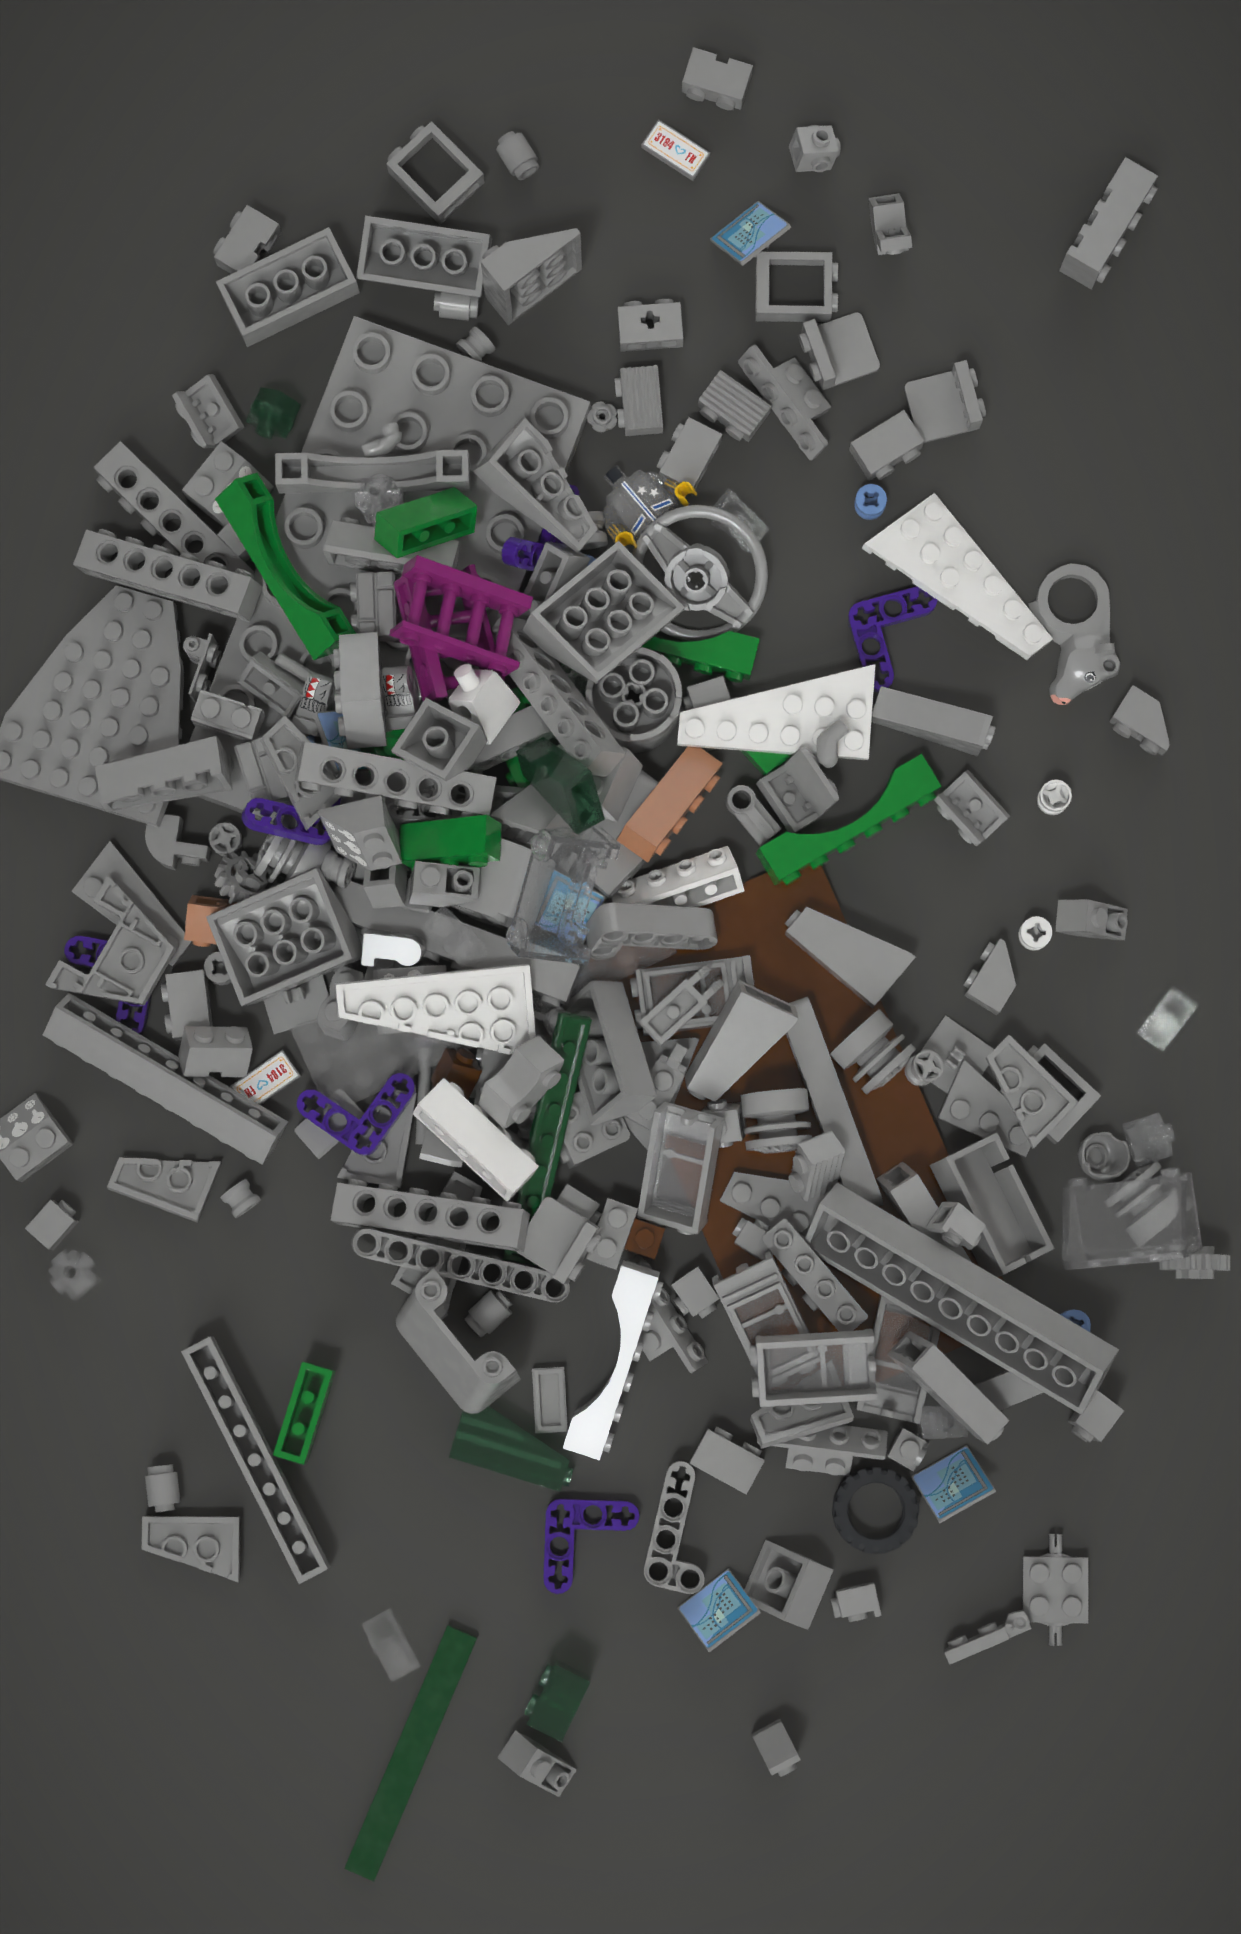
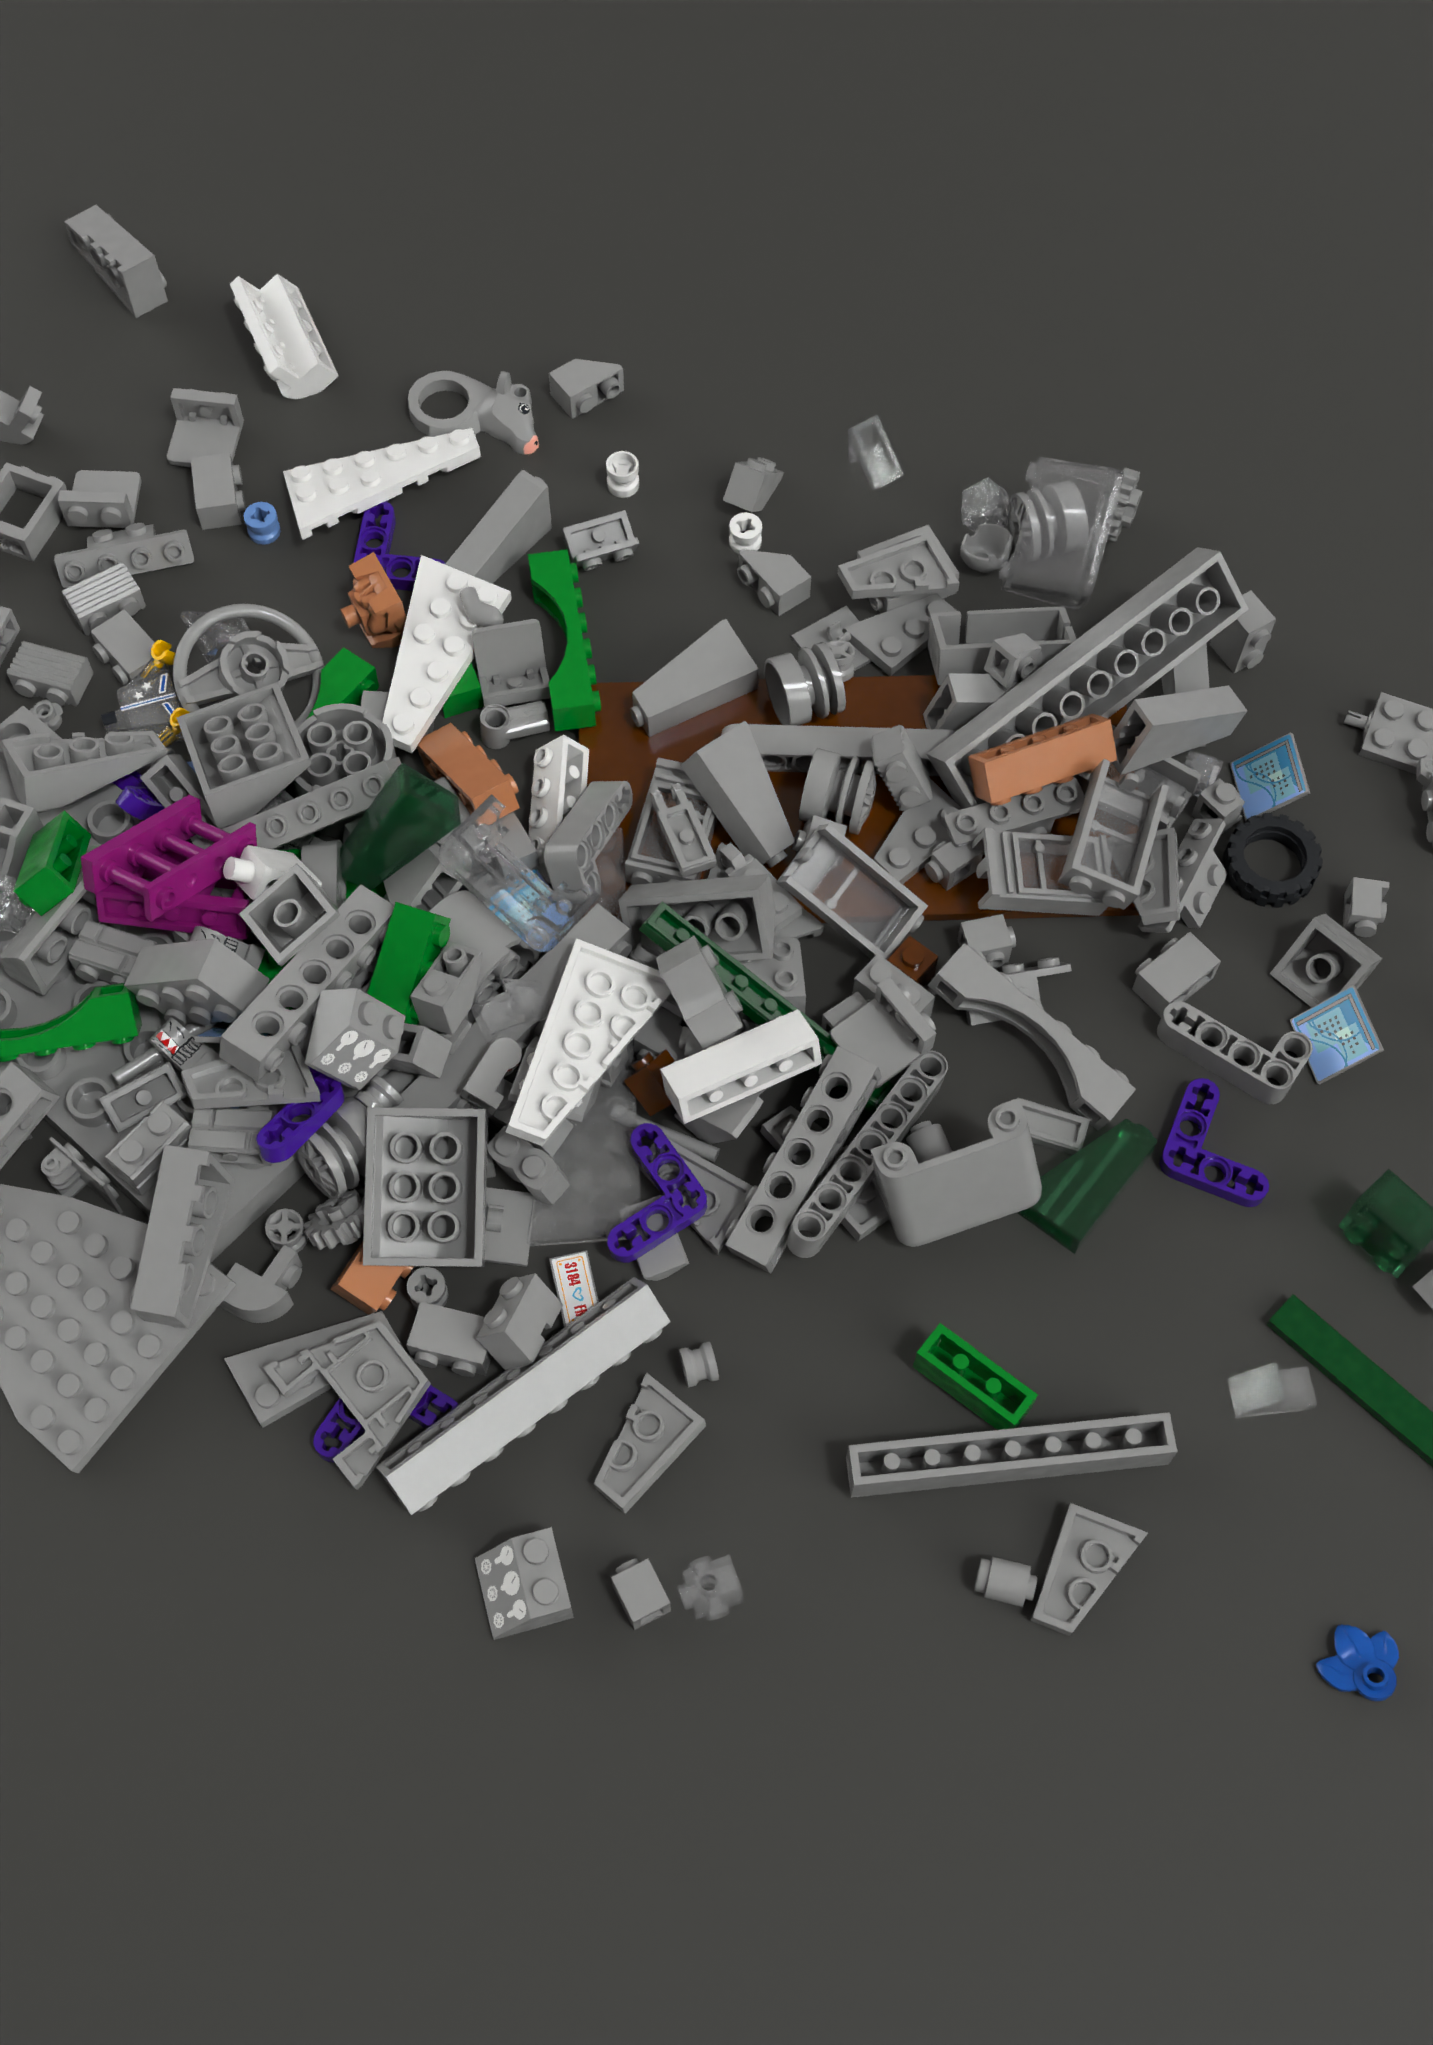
camera: 70 degrees left, 20 degrees down
(207, 1766) = (1358, 1658): none -> blue plate
(815, 644) = (374, 604): none -> nougat brick
(863, 1283) = (1042, 759): none -> nougat brick
(1081, 422) = (285, 336): none -> white brick

